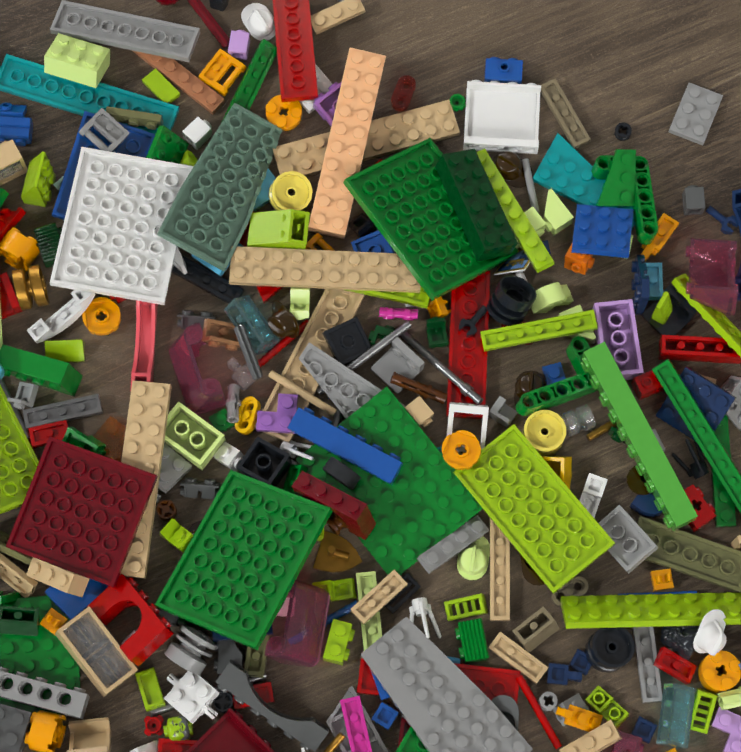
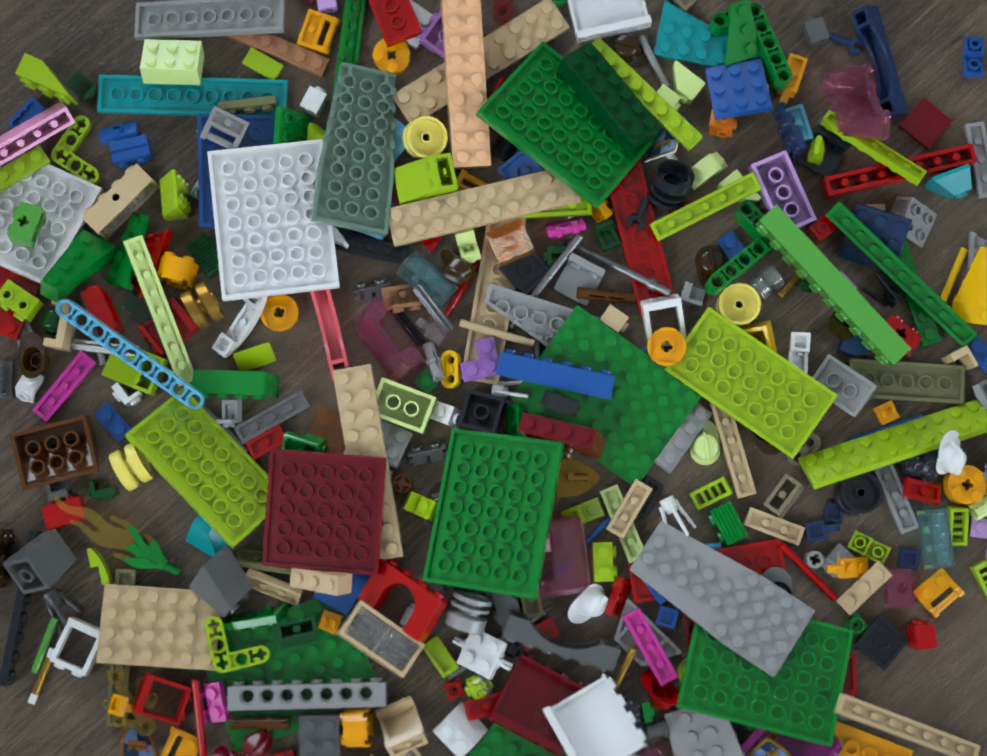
camera: 15 degrees left, 10 degrees up
(220, 365) = (409, 327): none -> black axle
(310, 679) = (588, 604): none -> white piece
(341, 311) = (510, 242): none -> clear orange plate
(342, 681) = (618, 596): none -> red plate

